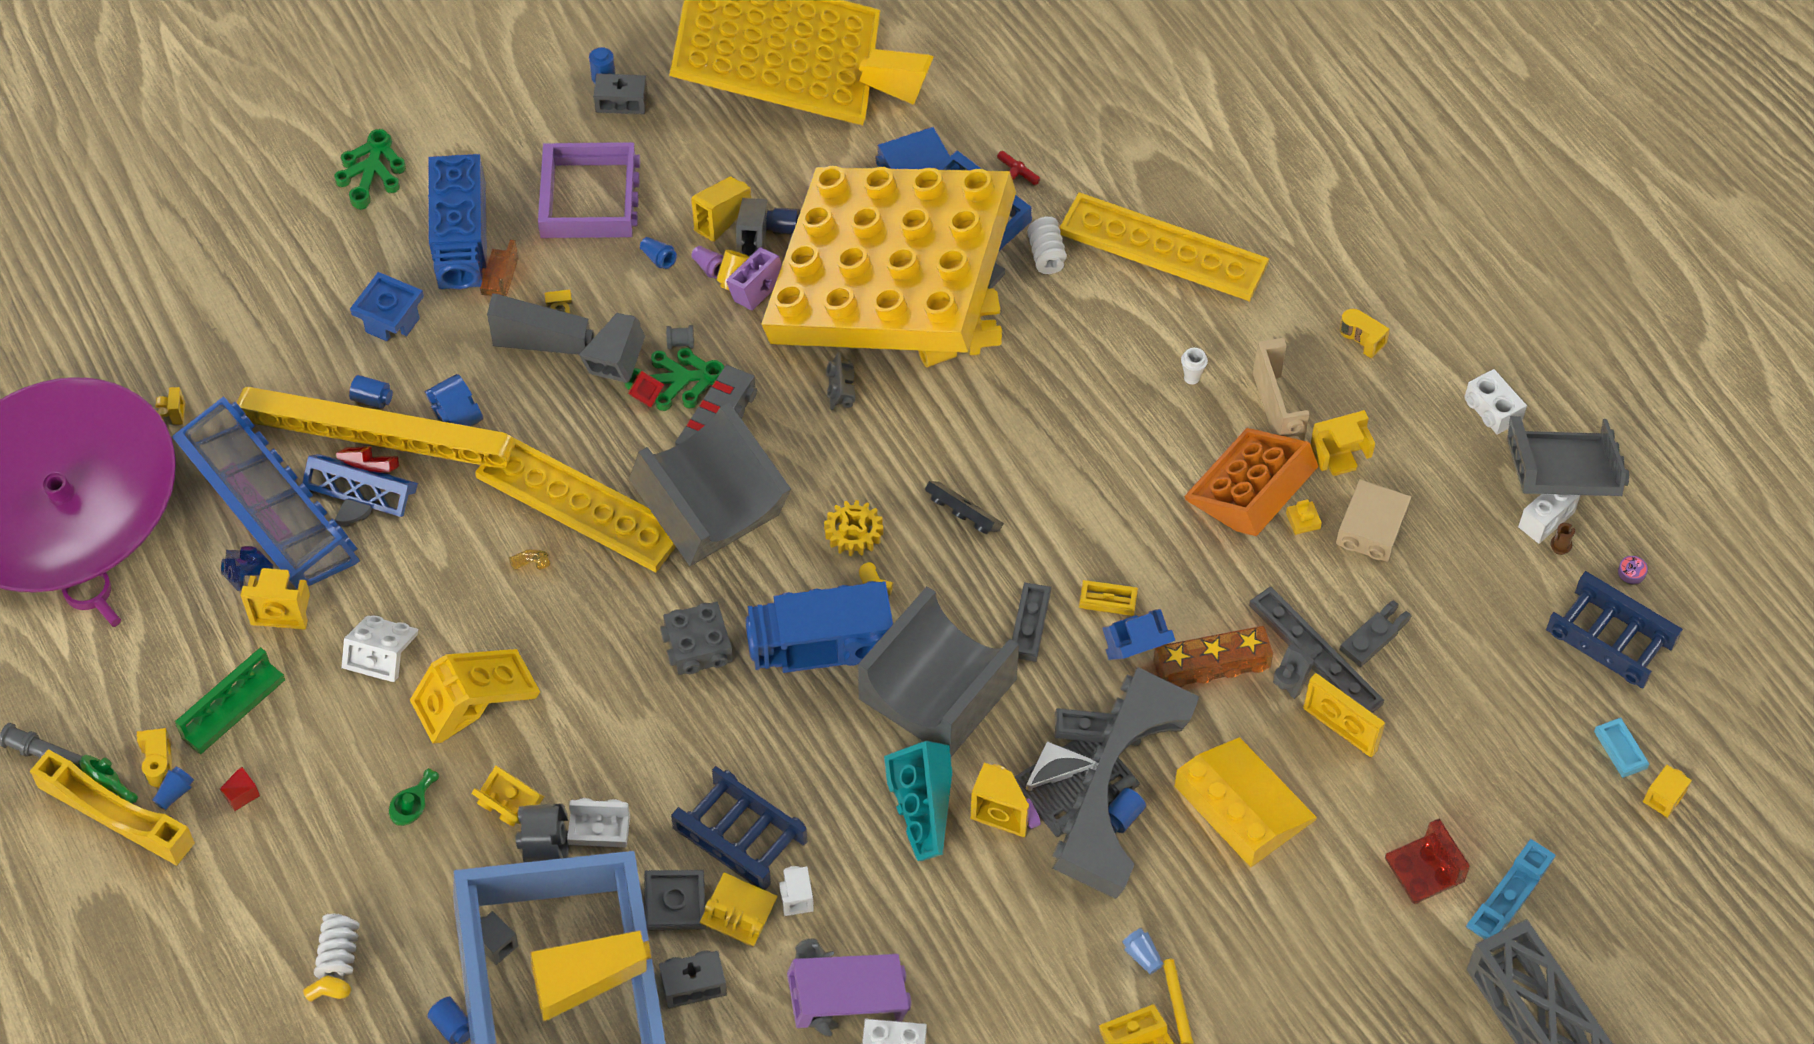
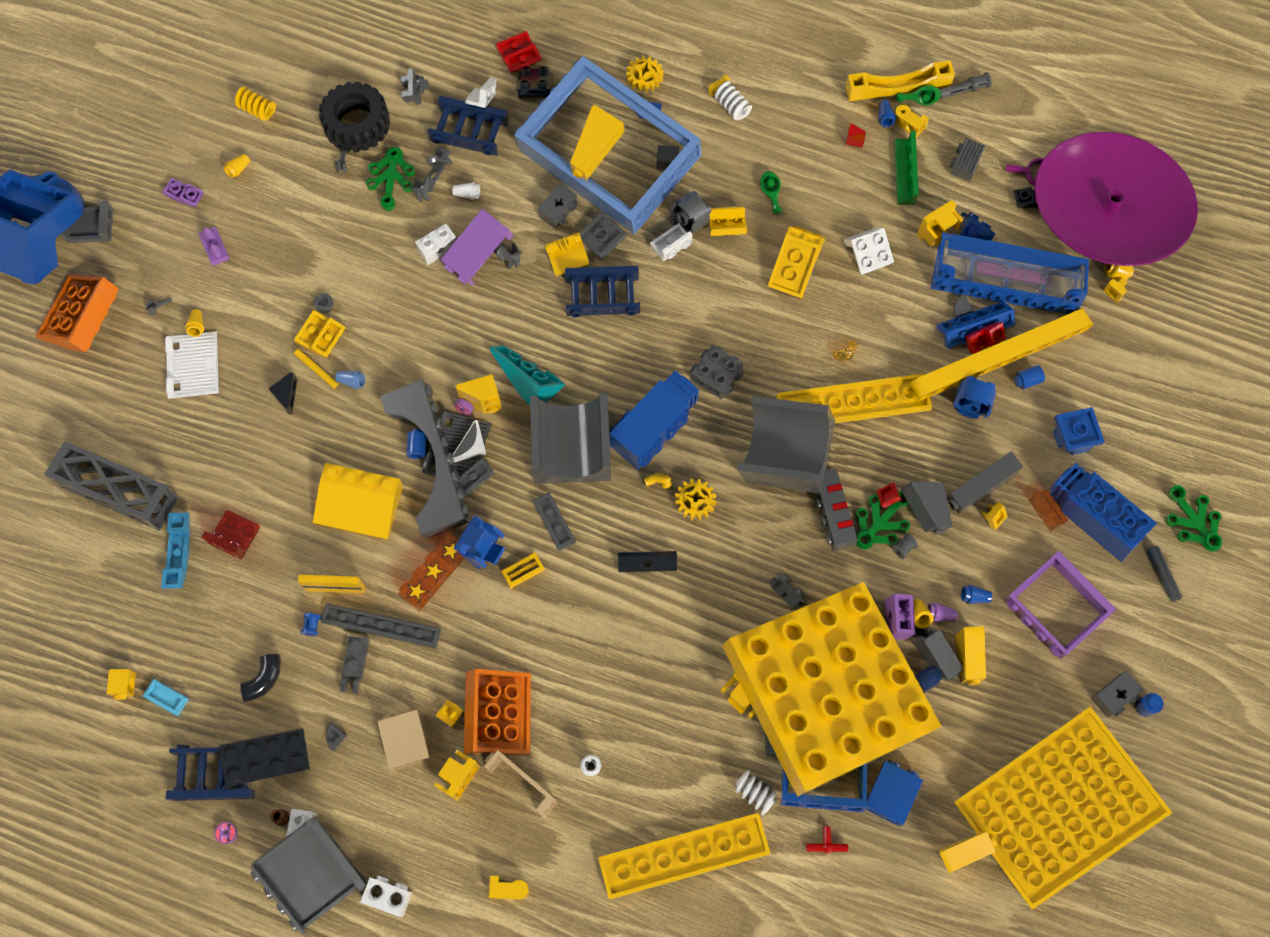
camera: 140 degrees right, 15 degrees up
(136, 570) = (1025, 198): none -> black slope
(150, 658) = (967, 159): none -> dark grey brick
(462, 138) = (1165, 573): none -> dark grey axle
(796, 891) = (546, 281): white brick -> none
(1241, 993) = (285, 391): none -> black slope
(1294, 669) = (379, 592): dark grey hips -> none
(1398, 709) = (310, 624): none -> blue bush
(1448, 580) = (334, 736): none -> dark grey tile
(1492, 680) = (264, 680): none -> black cylinder
(1543, 597) = (264, 757): none -> black plate

